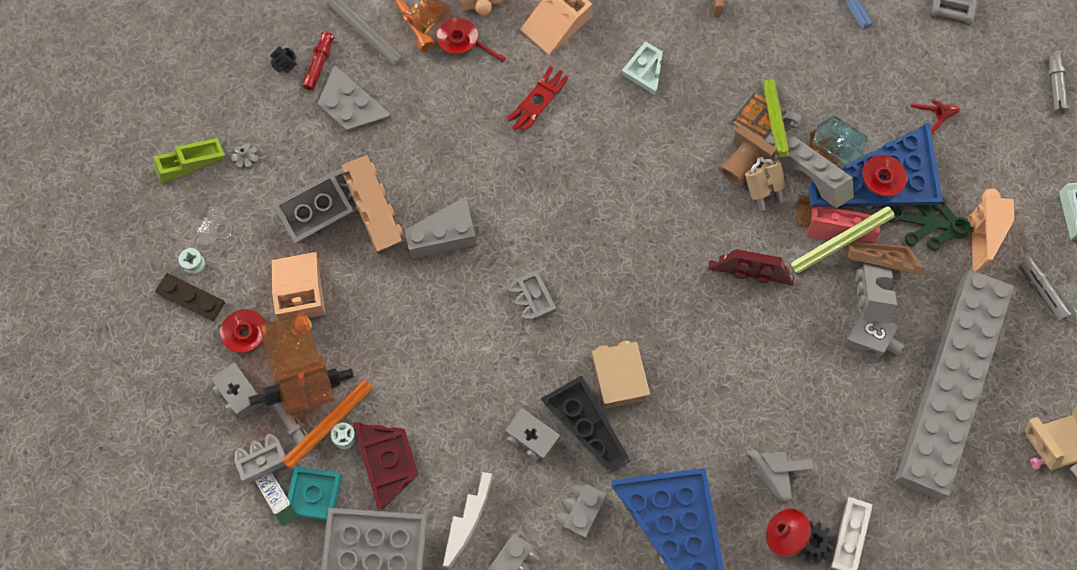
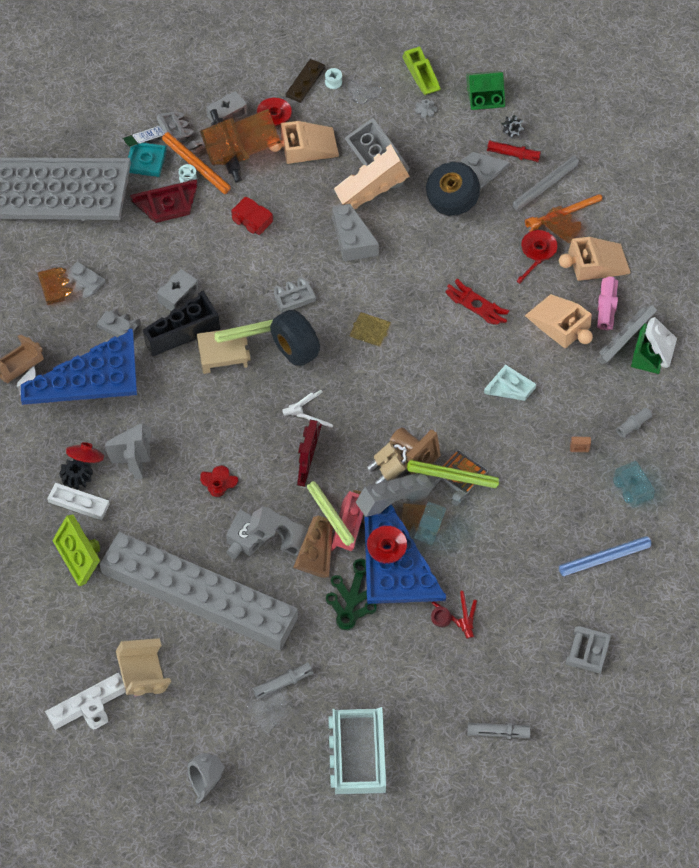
camera: 90 degrees right, 10 degrees down
(223, 87) = (486, 90): none -> green slope
(380, 118) = (453, 188): none -> black wheel
(413, 350) = (252, 216): none -> red brick
(464, 527) = (110, 246): white slope -> none
(574, 213) = (370, 329): none -> clear yellow piece
(595, 334) = (243, 331): none -> yellowish green axle
(608, 284) = (295, 337): none -> black wheel
(695, 286) = (296, 409): none -> white plant
(796, 371) = (218, 480): none -> red plate
(928, 526) = (77, 550): none -> lime plate
(941, 134) = (441, 617): none -> dark red tile
(989, 227) = (336, 633): light nougat slope -> none

